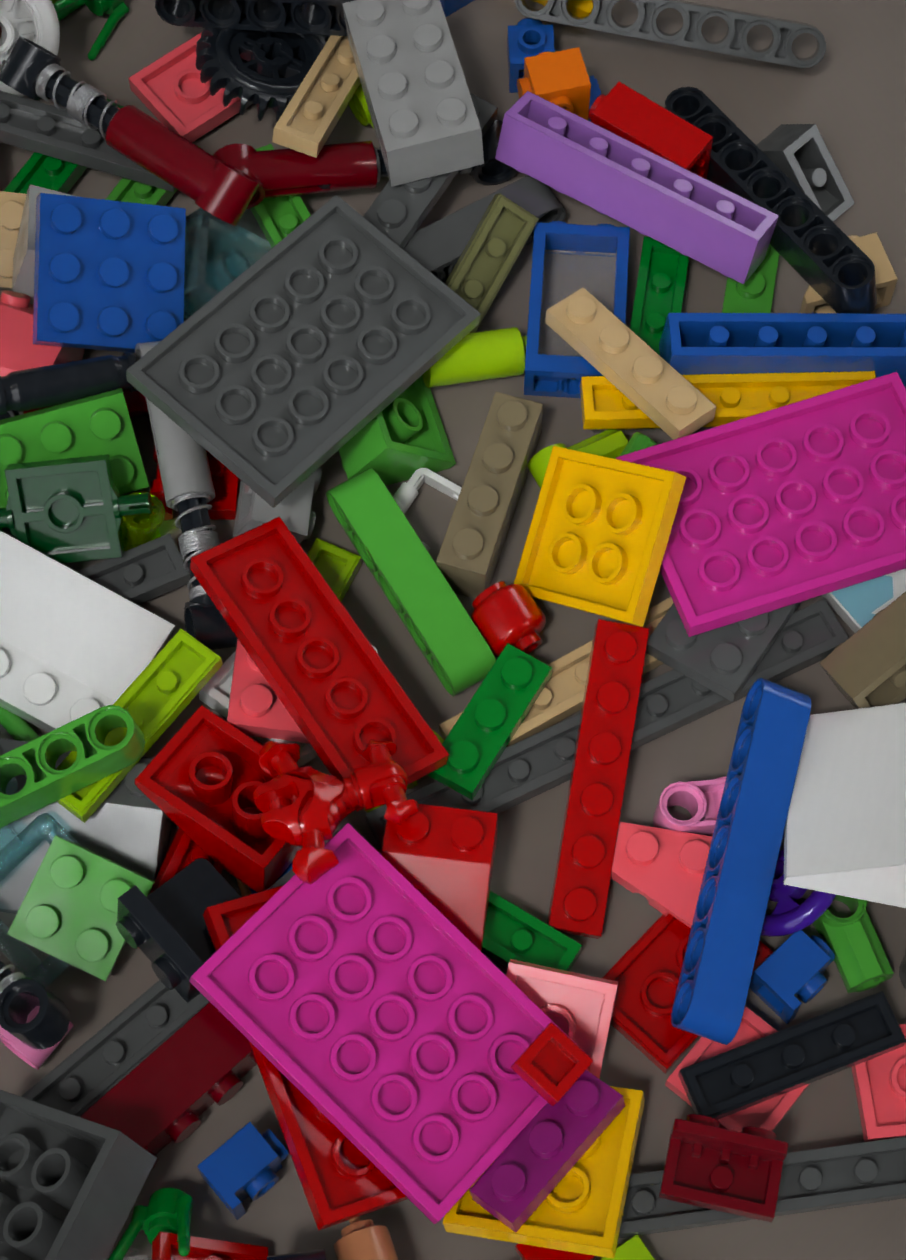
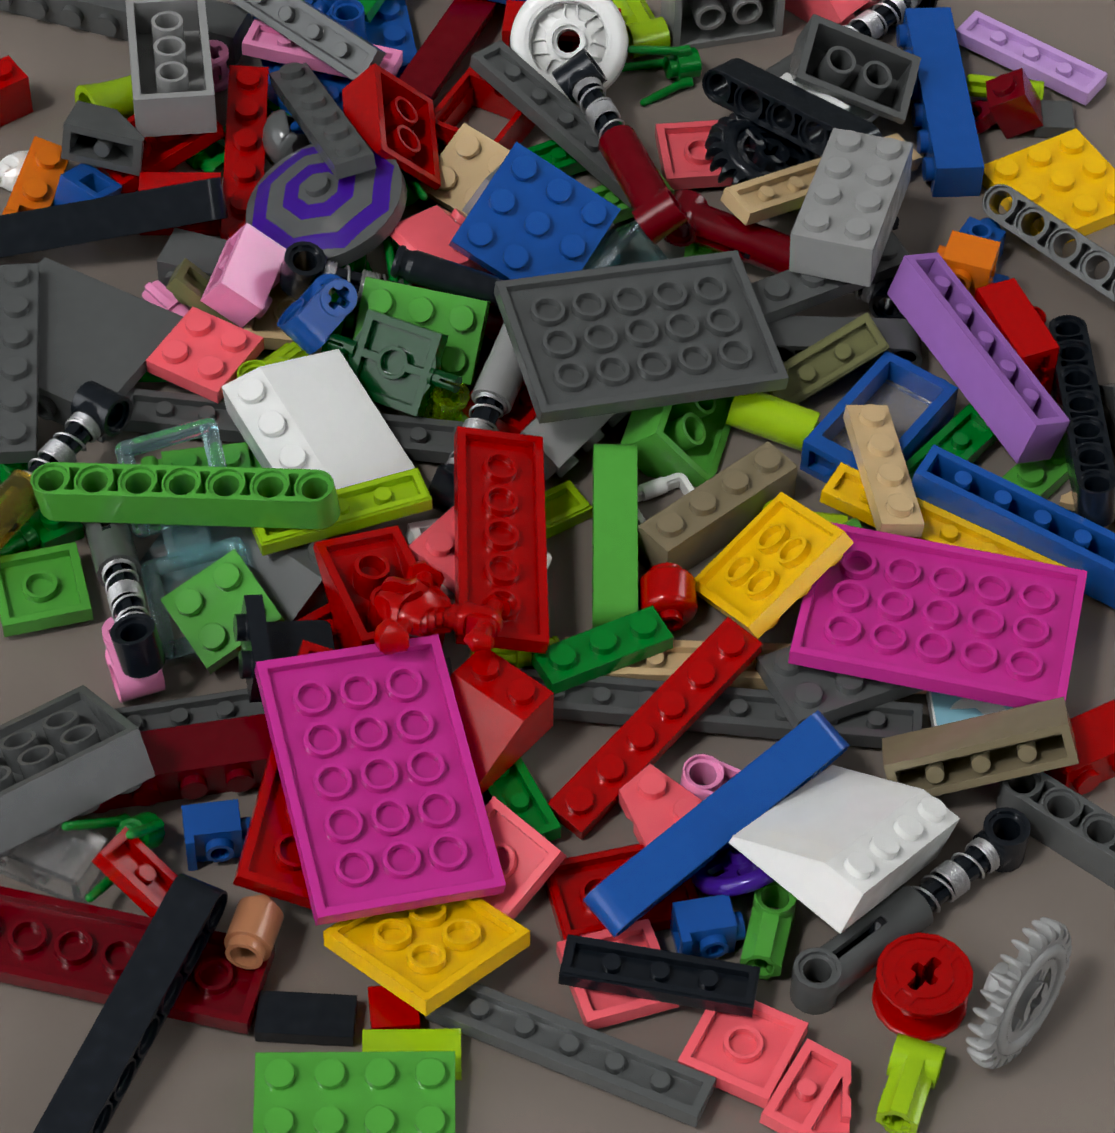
camera: 30 degrees right, 15 degrees down
(546, 1151) = (432, 923): magenta plate -> none
(552, 1064) = (471, 864): red plate -> none
(723, 1167) = (551, 1006): dark red bracket -> none

